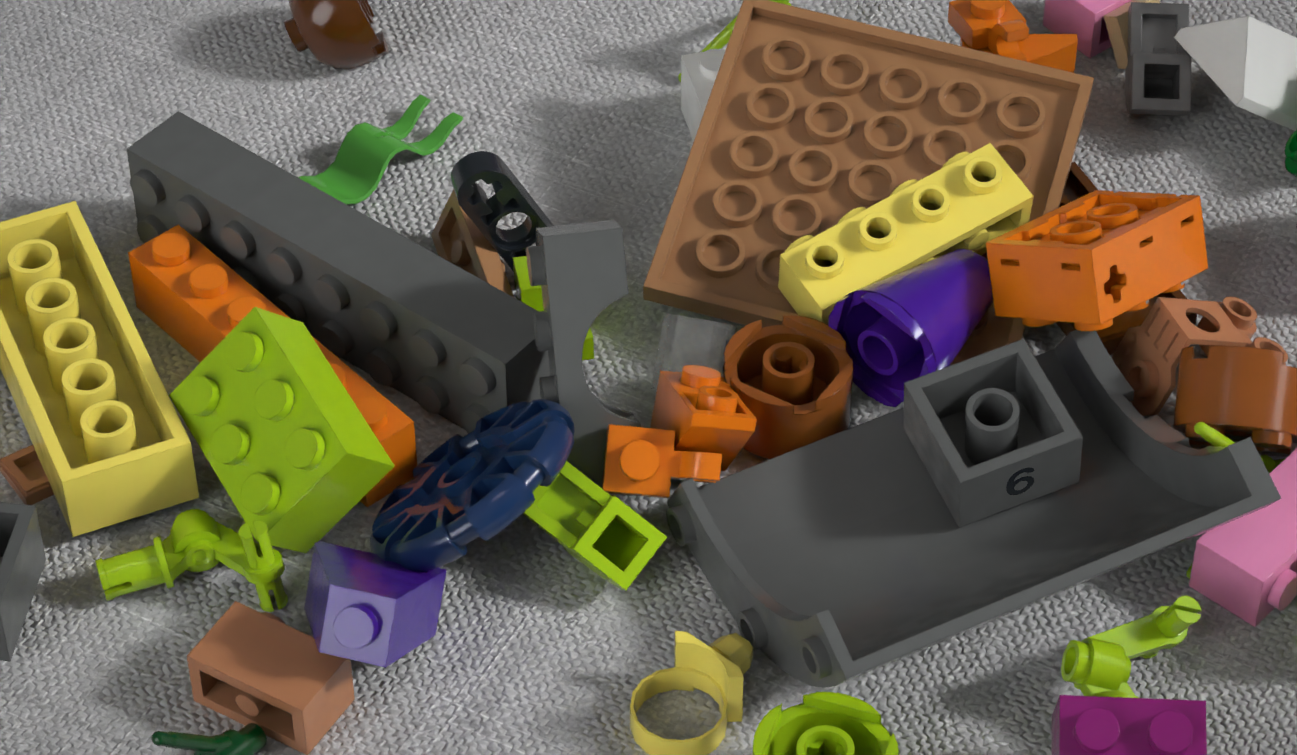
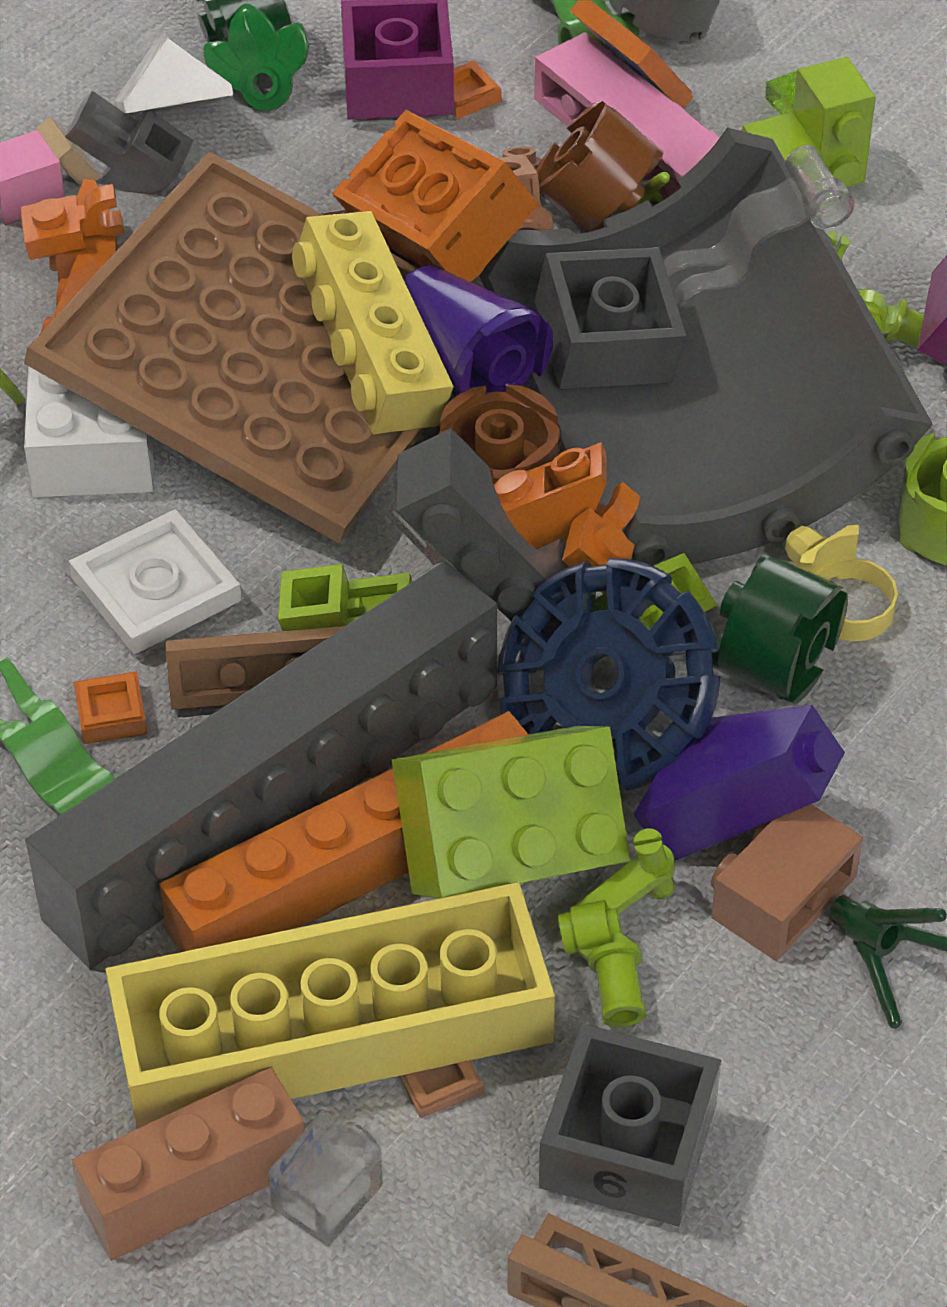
camera: 80 degrees left, 5 degrees up
(420, 194) = (110, 707): none -> orange tile
(508, 198) = (242, 596): black beam -> none
(576, 623) = (779, 628): none -> dark green brick
(584, 182) = (155, 581): none -> white plate
(1160, 522) = (804, 196): none -> clear flag

